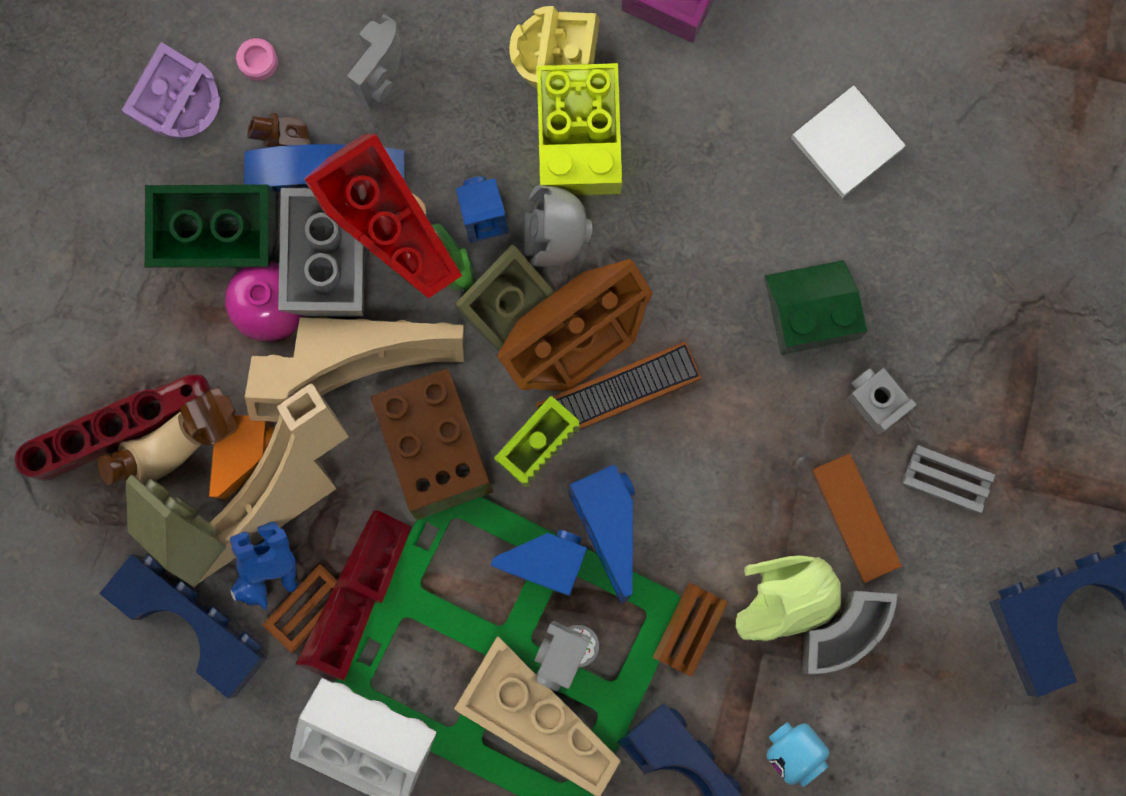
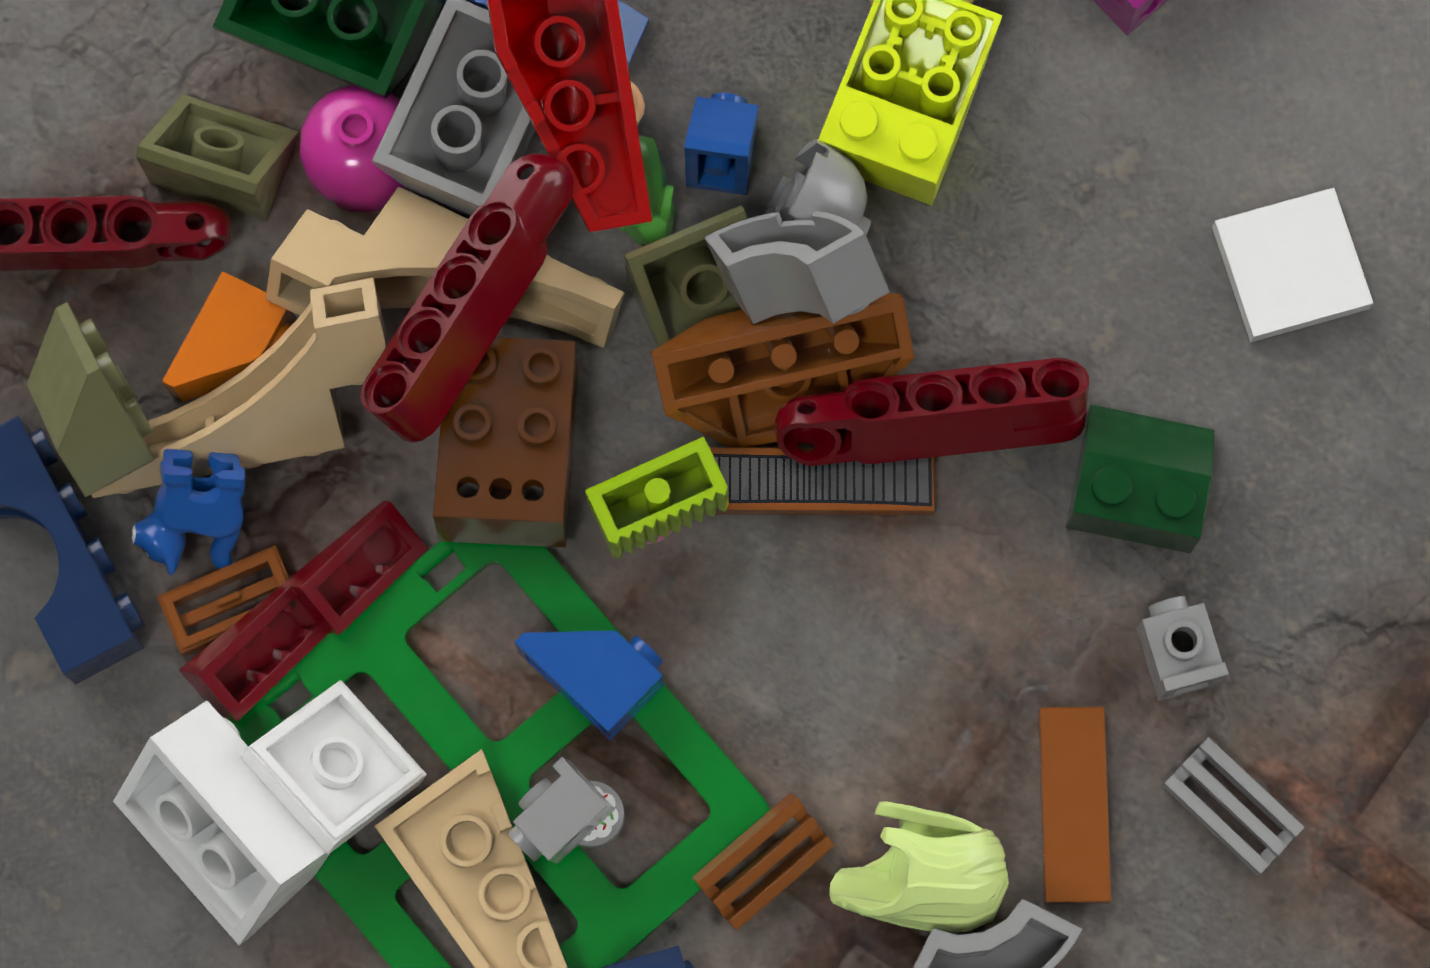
camera: 20 degrees right, 5 degrees down
(162, 451) = (128, 292): piece -> none
(181, 342) = (218, 156): none -> olive slope
(374, 372) = (468, 299): none -> dark red piece
(414, 684) = (333, 766): none -> white tile
(563, 268) = (797, 266): none -> light grey brick
(607, 516) = (712, 641): blue slope -> none
(680, 319) = (938, 413): none -> dark red piece

